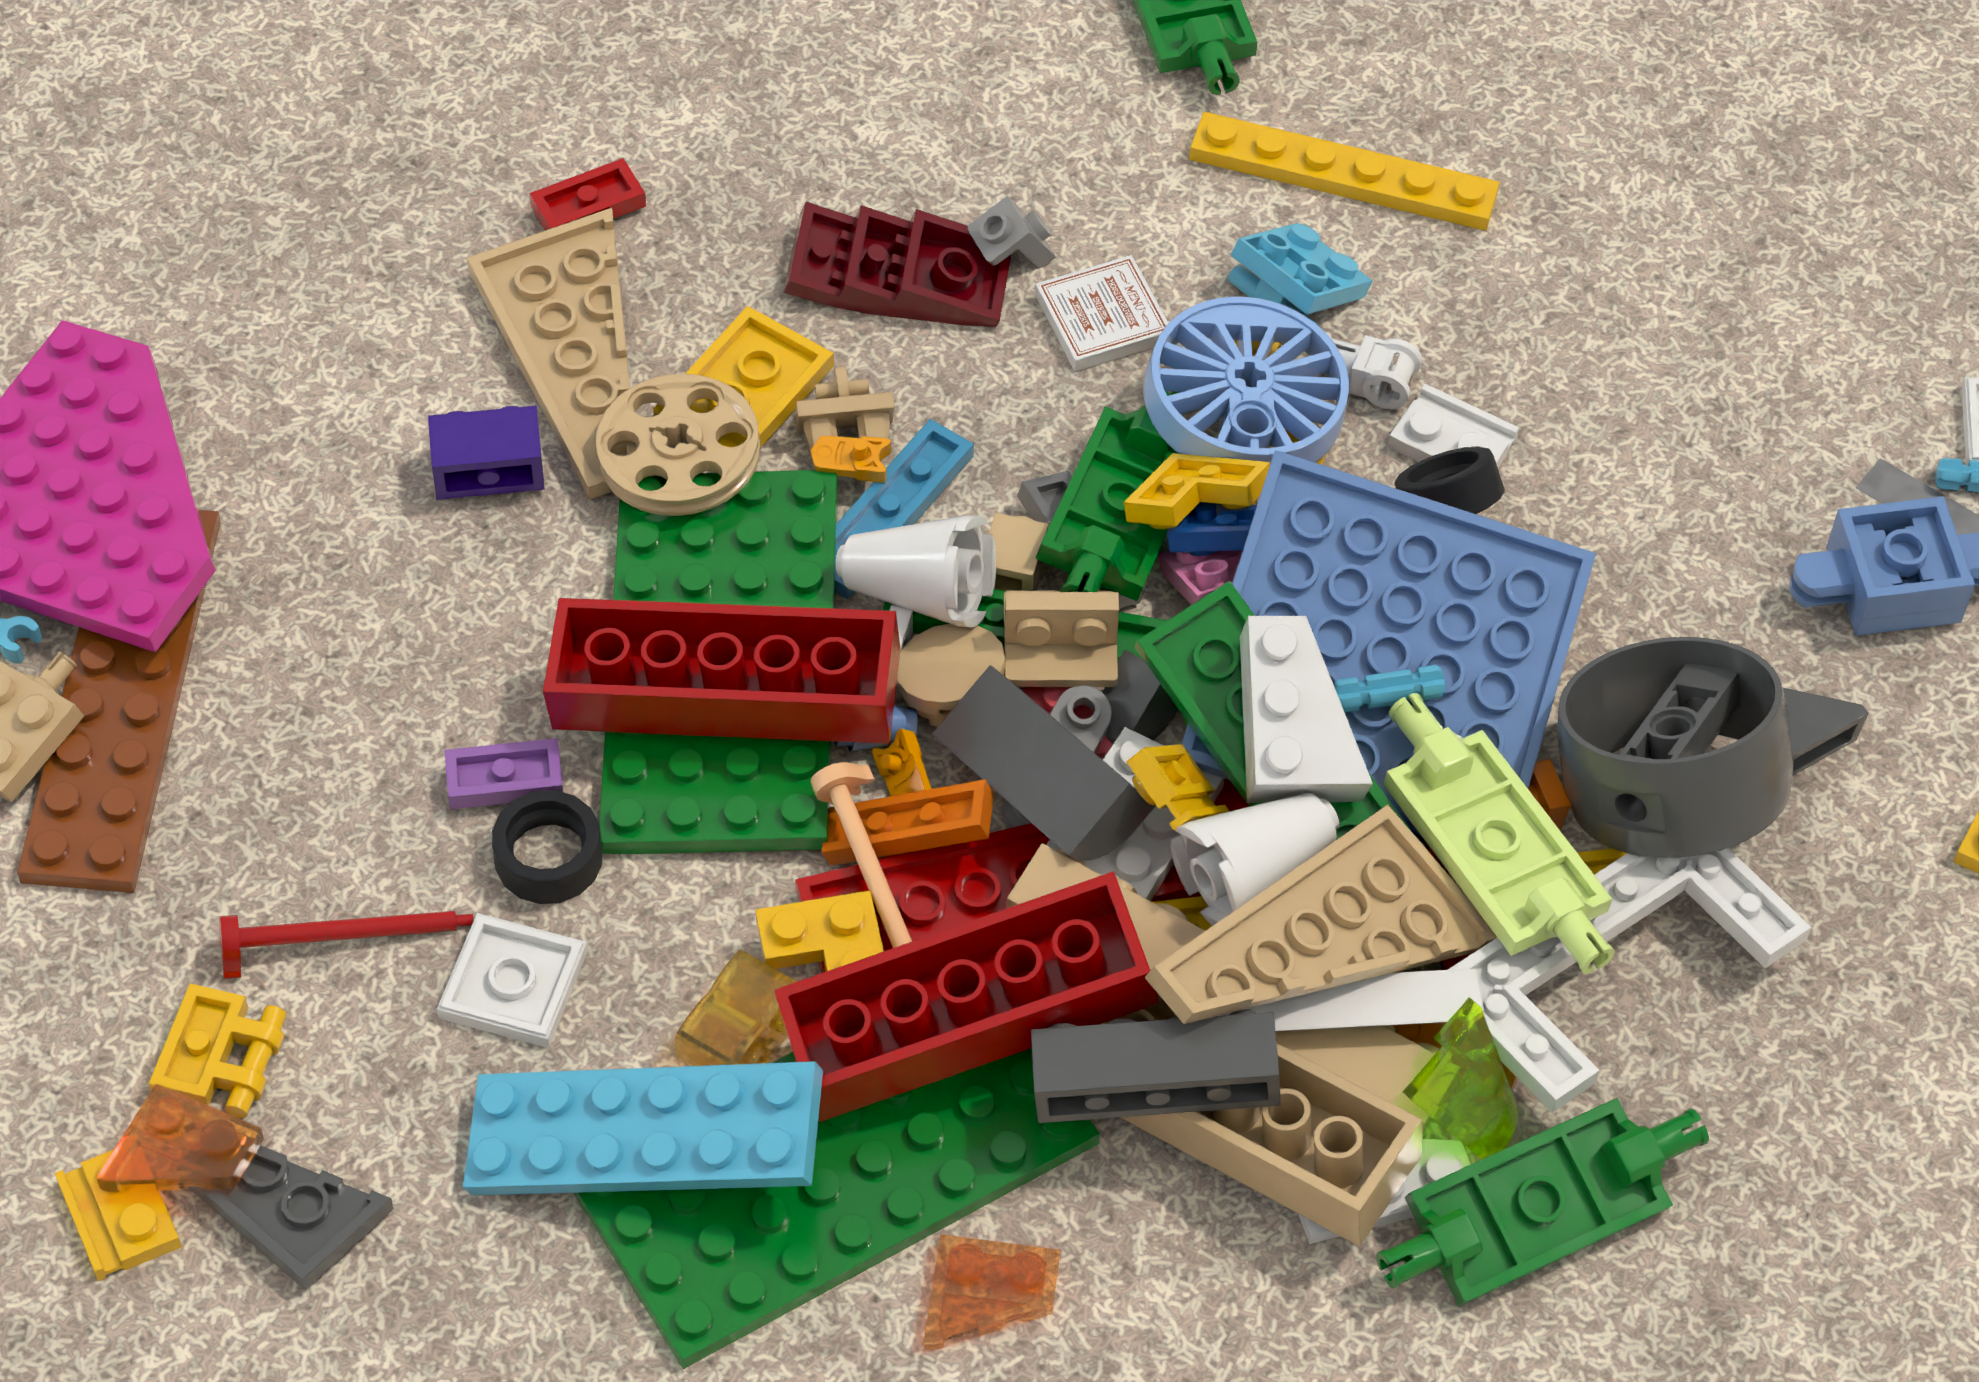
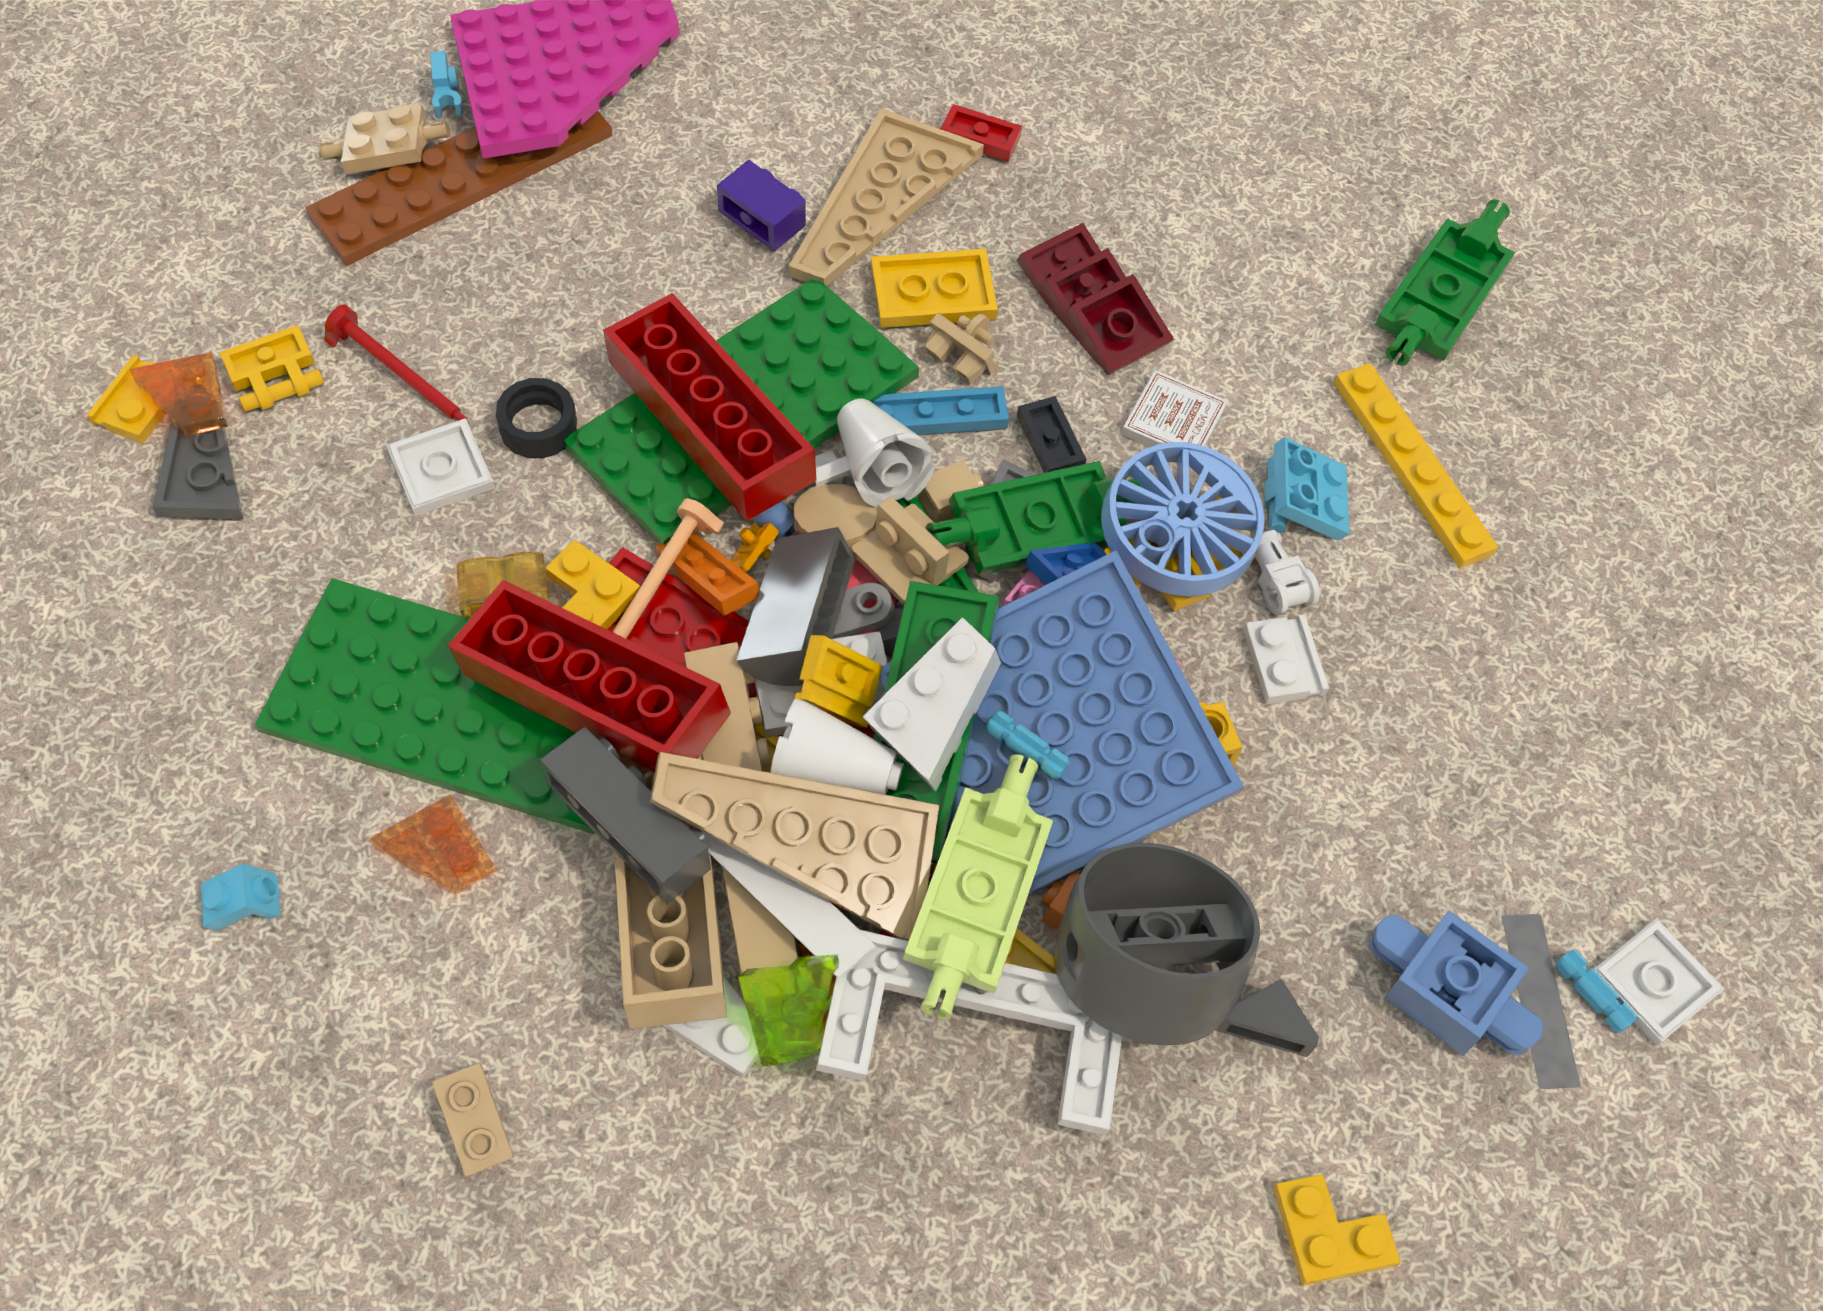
camera: 45 degrees right, 5 degrees up
(501, 772) = (566, 364): medium lavender plate -> none
(644, 1129) = (373, 593): medium azure plate -> none
(685, 461) = (841, 291): tan wedge -> none
(852, 457) = (934, 367): light orange piece -> none
(1009, 228) = (1175, 330): light grey bracket -> none
(1026, 427) = (1050, 435): none -> black plate
(1190, 479) = (1073, 533): yellow plate -> none
(1457, 478) = (1234, 678): black tyre -> none
(1540, 1200) = (758, 1113): green plate -> none

